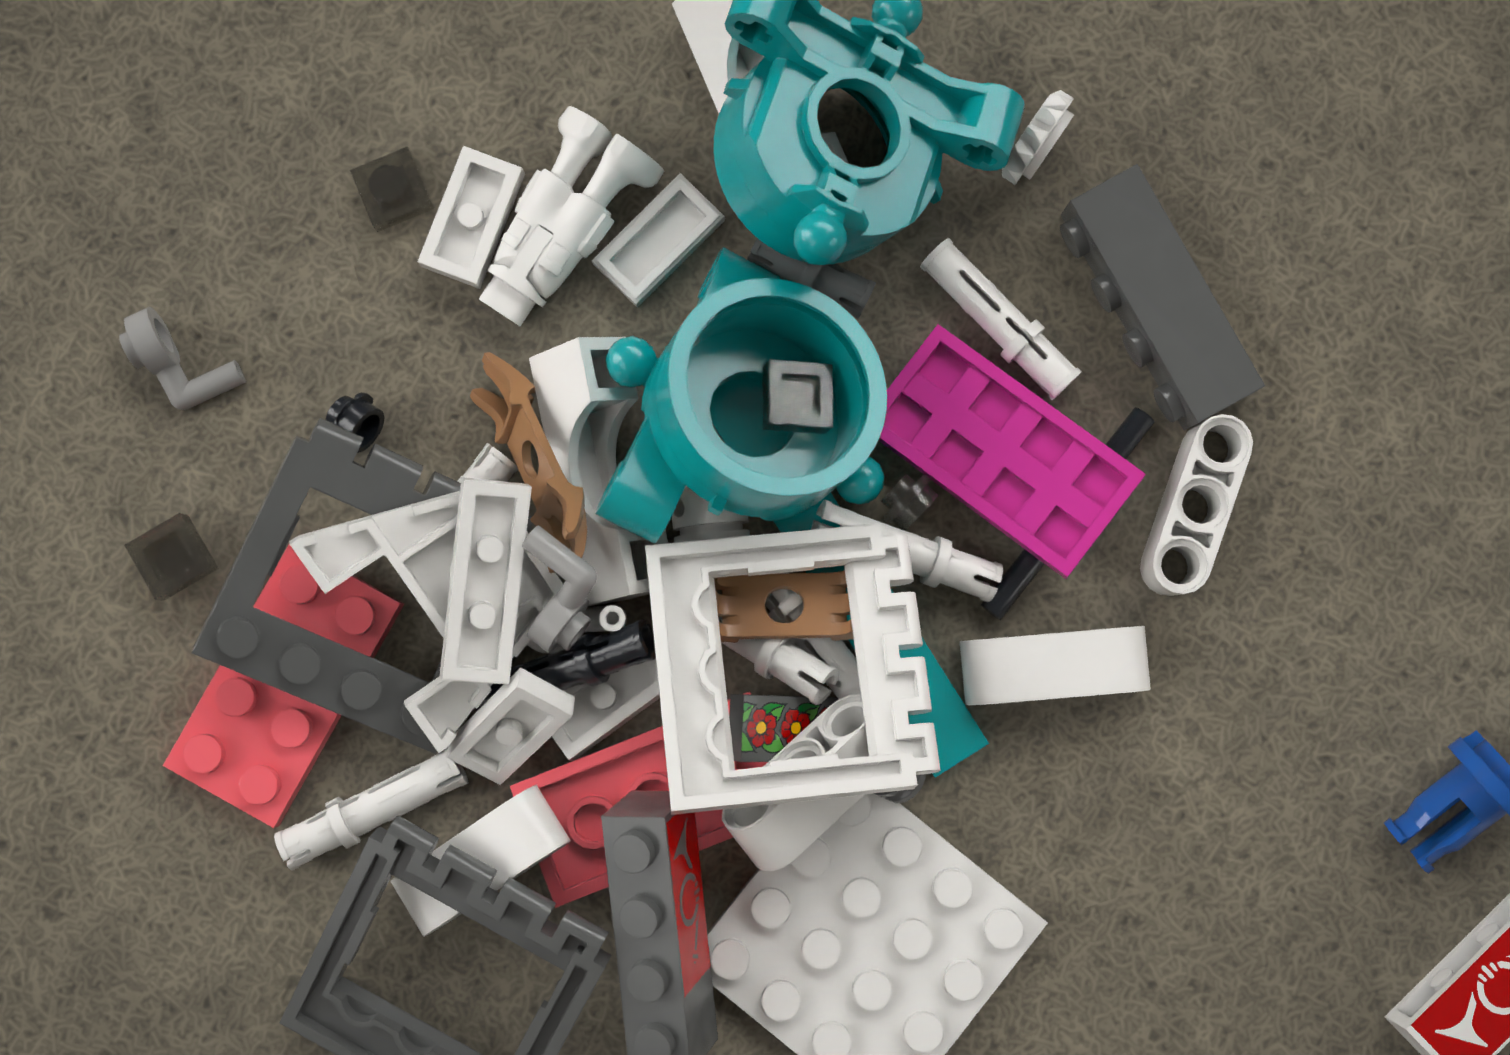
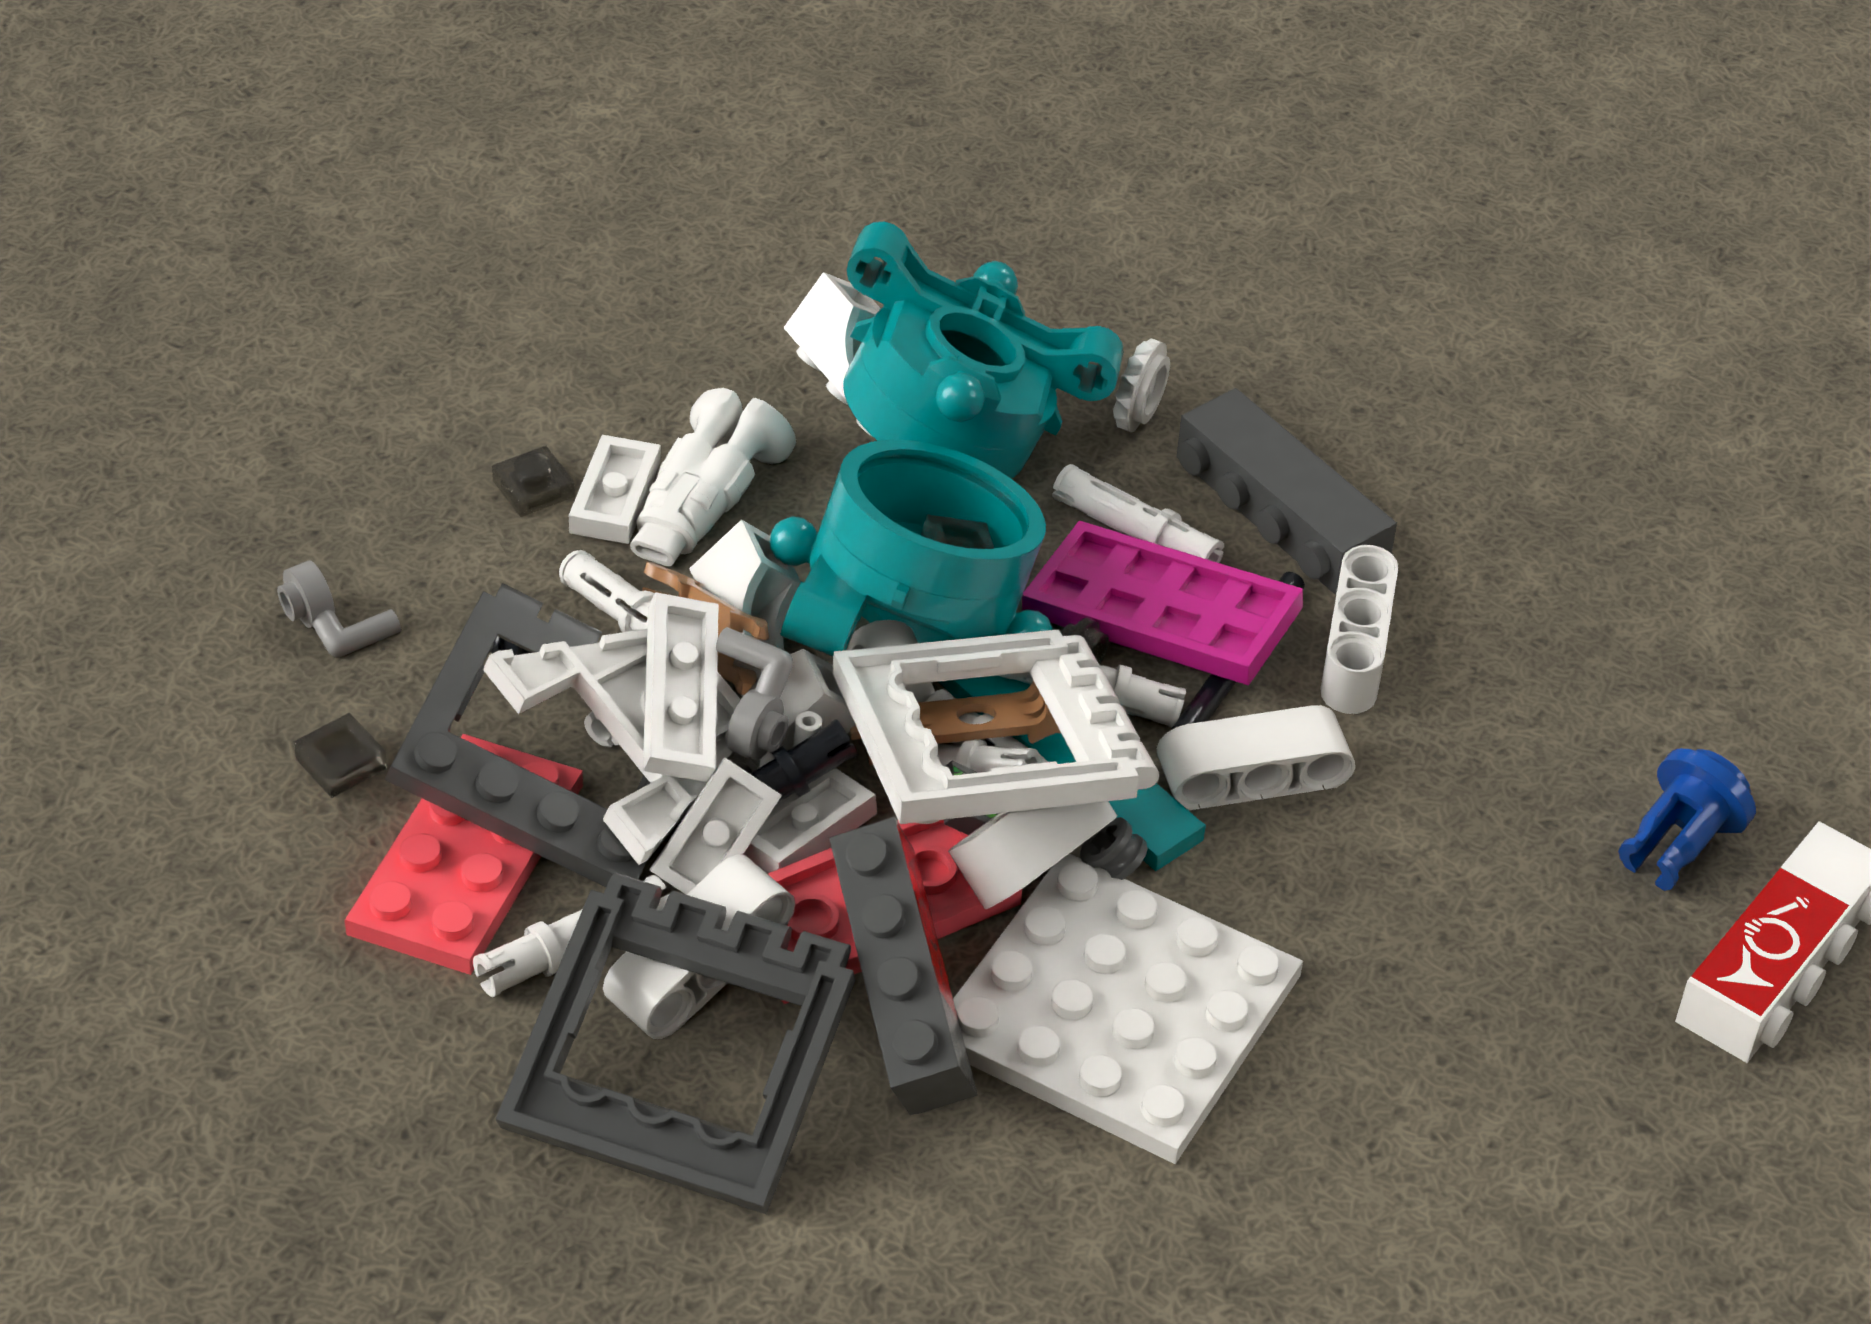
camera: 15 degrees left, 40 degrees down
(470, 420) = (592, 578): none -> white pin
(658, 240) = (796, 491): white tile -> none

